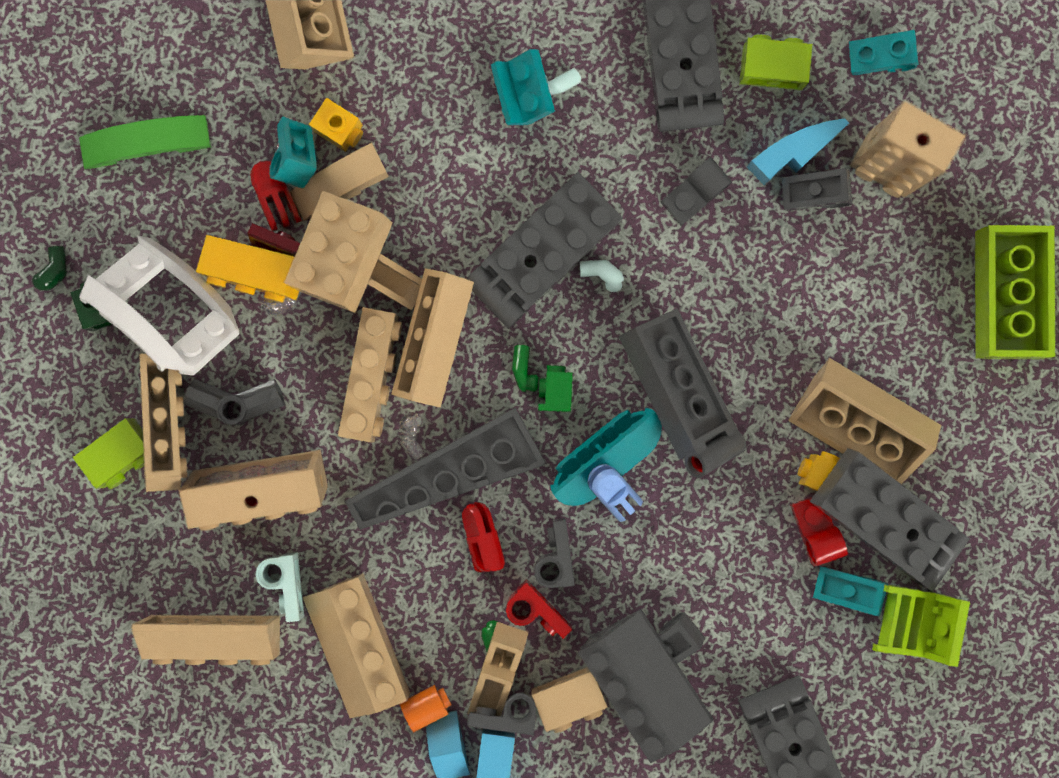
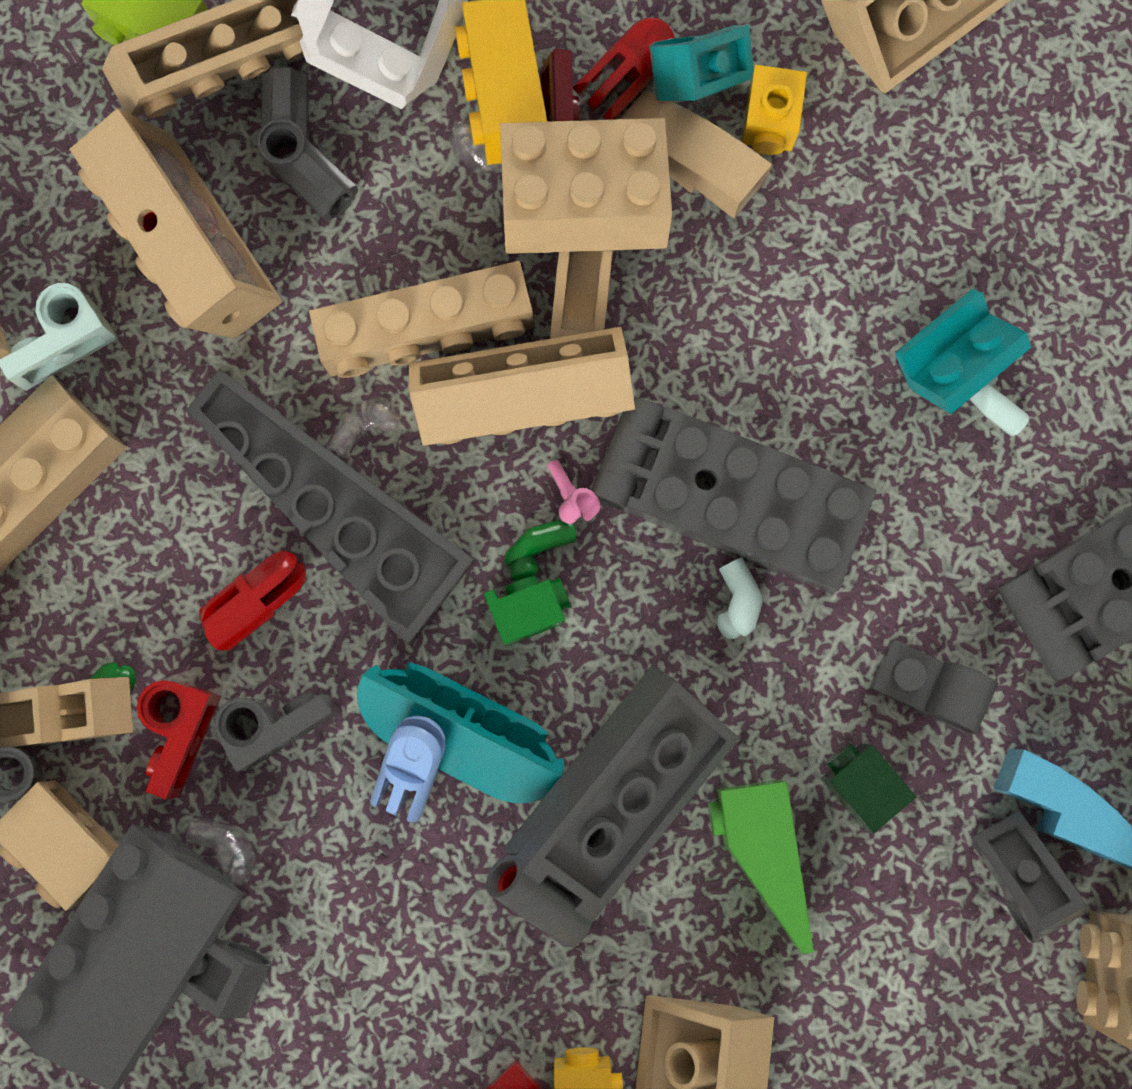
camera: 70 degrees right, 5 degrees down
(510, 337) = (575, 500): none -> bright pink hand
(609, 607) = (229, 844): none -> clear arm
(732, 252) = (866, 785): none -> dark green brick
(736, 321) = (762, 840): none -> bright green slope

